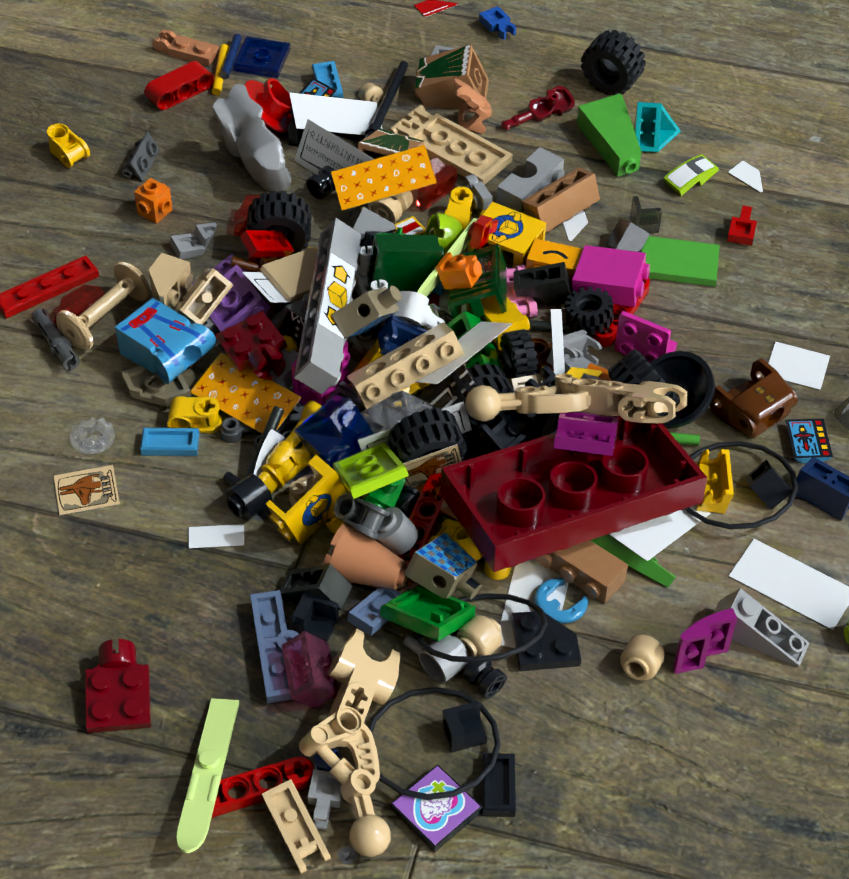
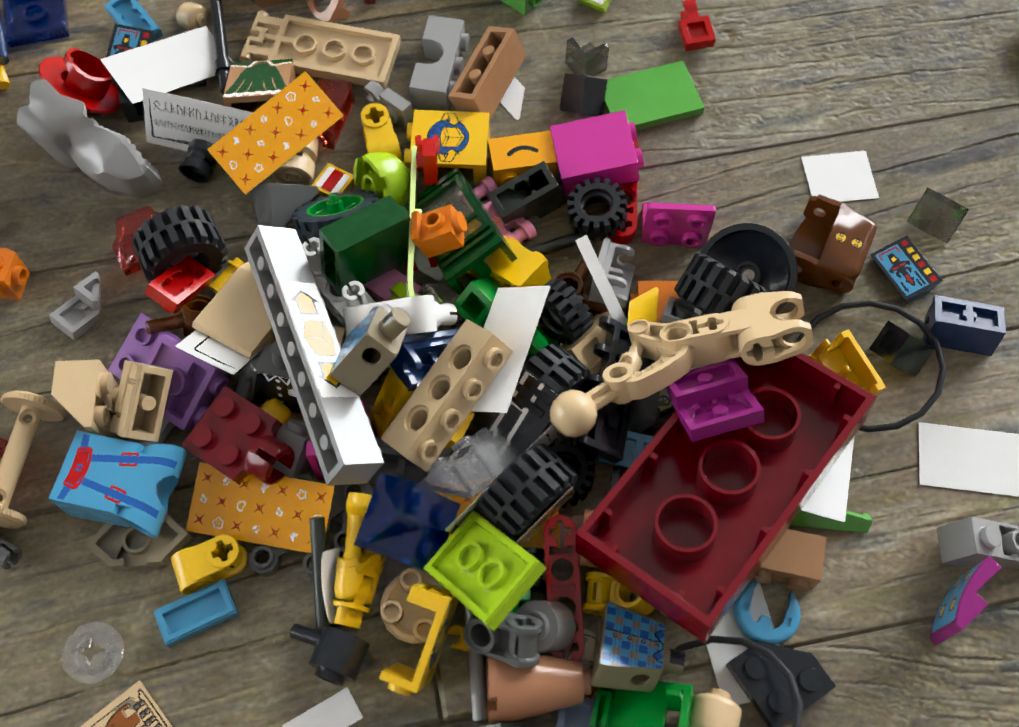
camera: 25 degrees left, 15 degrees up
(642, 657) = (901, 650): tan head -> none

